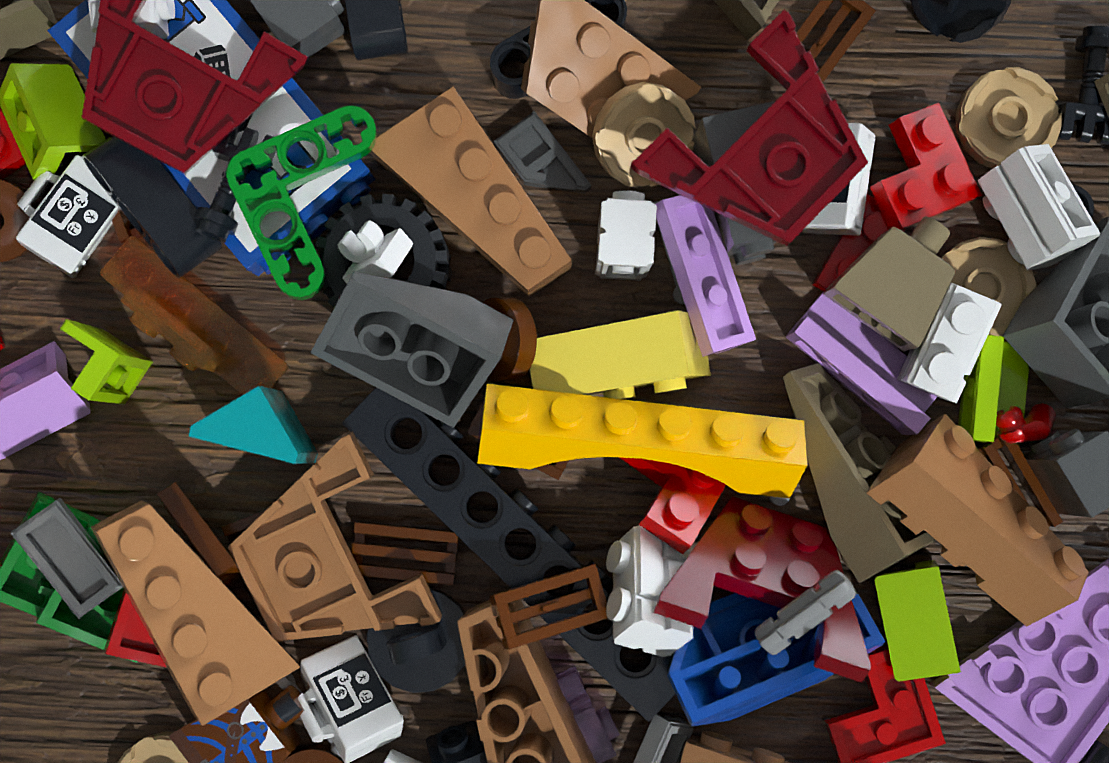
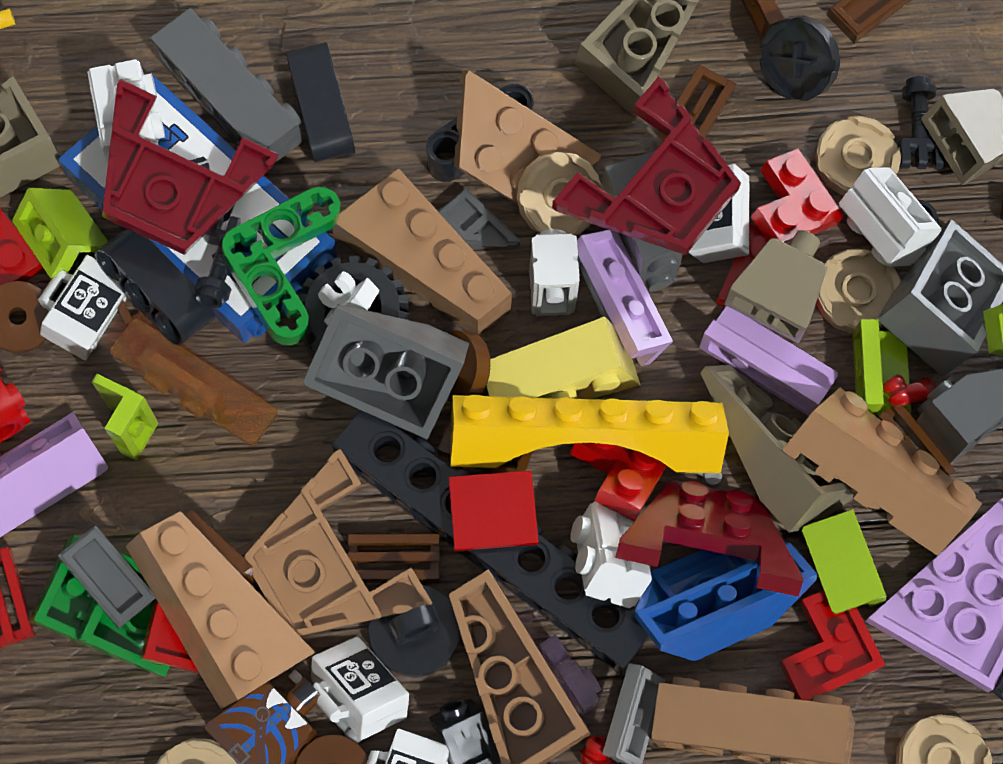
camera: 10 degrees left, 15 degrees down
(259, 424) = (258, 457): teal slope -> none
(506, 619) = (492, 584): reddish brown tile -> none
(519, 527) = (493, 510): none -> red piece
(805, 612) = (743, 547): light grey axle -> none
(951, 344) = (833, 328): white brick -> none

